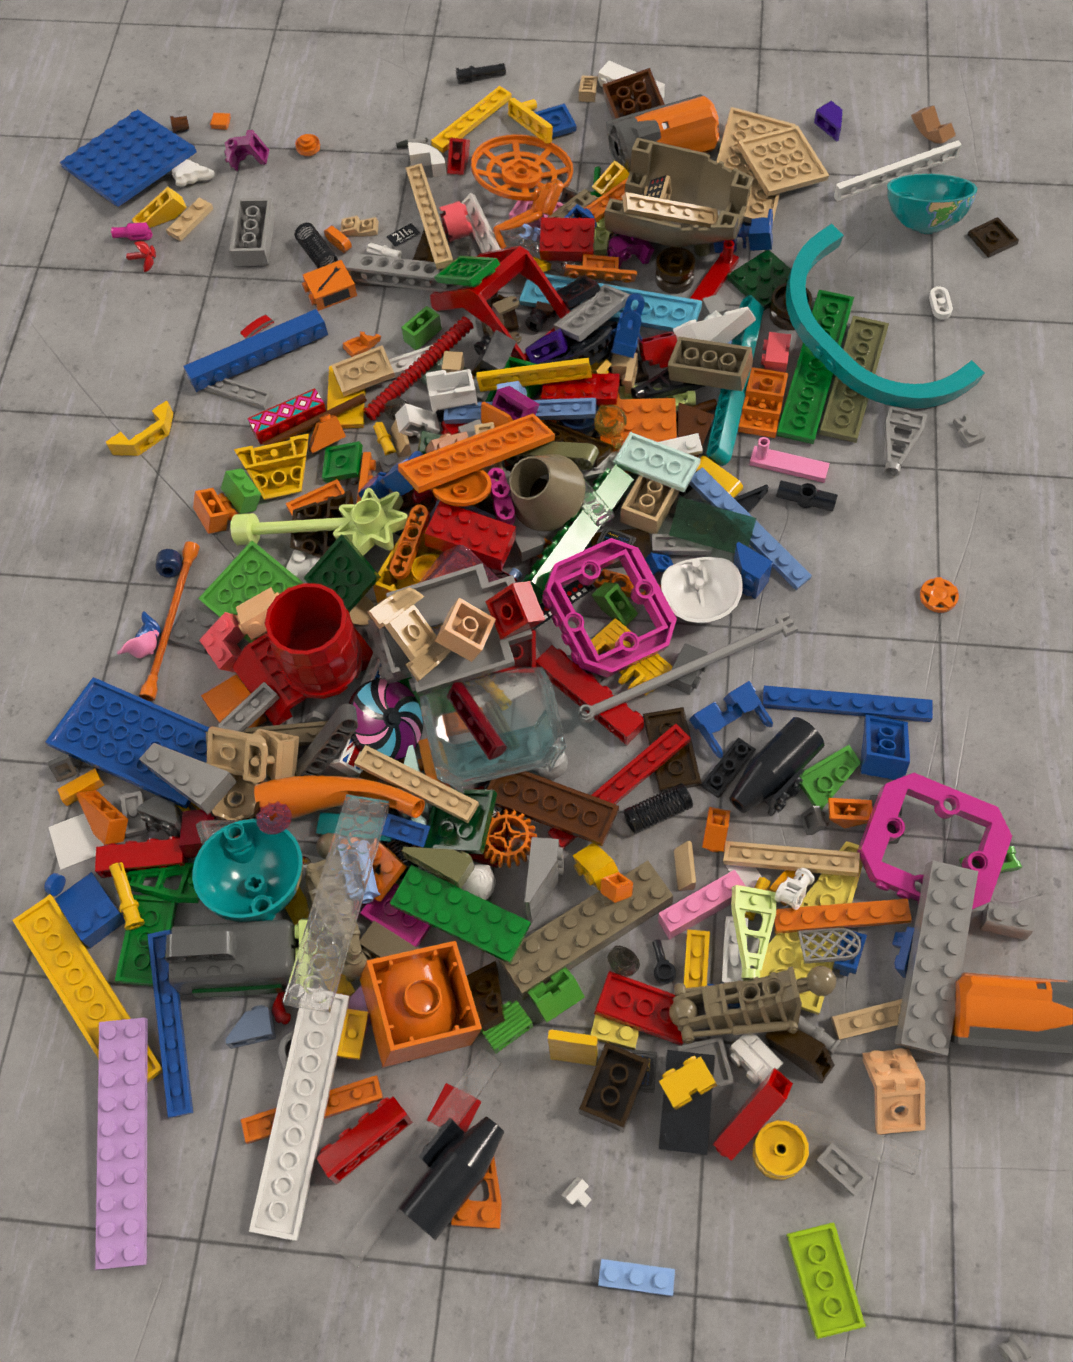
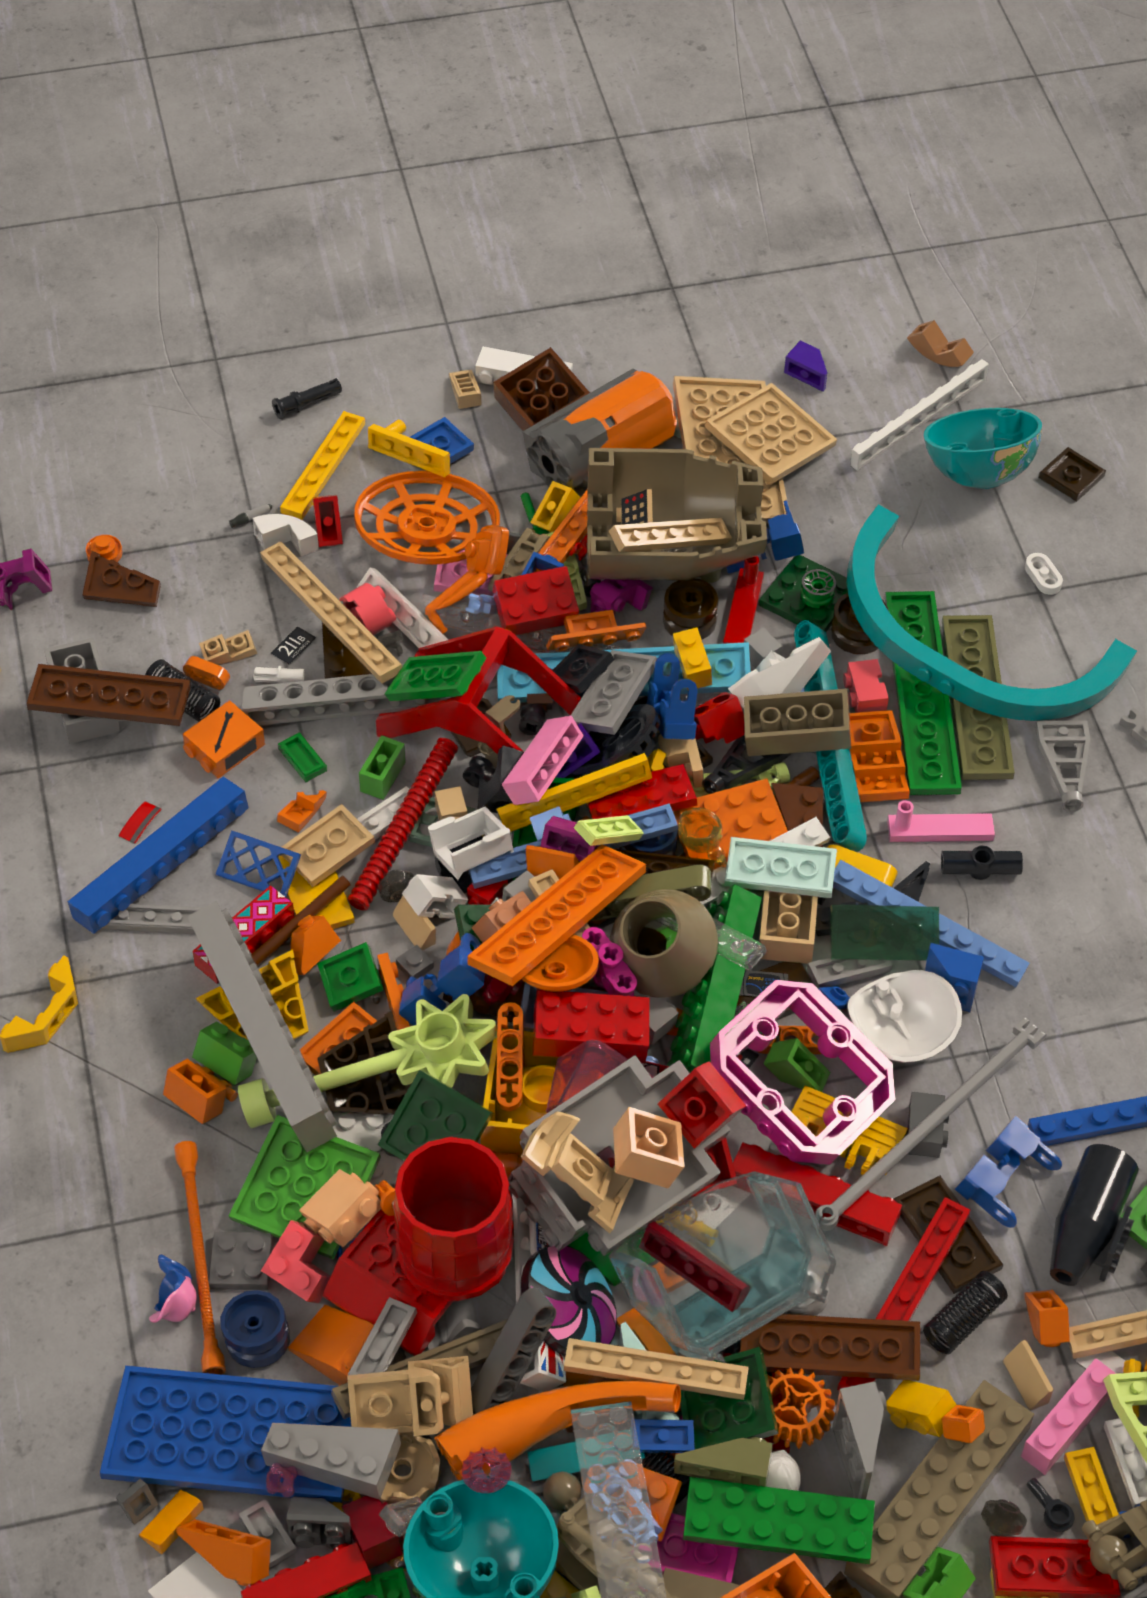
camera: 25 degrees left, 10 degrees down
(149, 782) = (274, 1476): none -> clear pink plate
(168, 563) = (163, 1179): dark blue head -> none
(181, 677) = (255, 1329): none -> dark blue wheel
(260, 479) = (264, 1026): none -> light grey piece
(262, 237) = (108, 694): none -> reddish brown plate
(300, 362) = (253, 843): none -> blue window
(306, 168) = (115, 583): none -> reddish brown wing
(376, 309) = (302, 757): none -> green tile
(384, 438) = (392, 930): yellow axle -> none
(518, 346) = (542, 760): none -> bright pink brick
(540, 404) = (608, 830): none -> yellowish green tile
(656, 302) = (692, 657): none -> yellow brick
(722, 776) = (1024, 1247): black tile -> none
(769, 275) = (818, 588): none -> green wheel

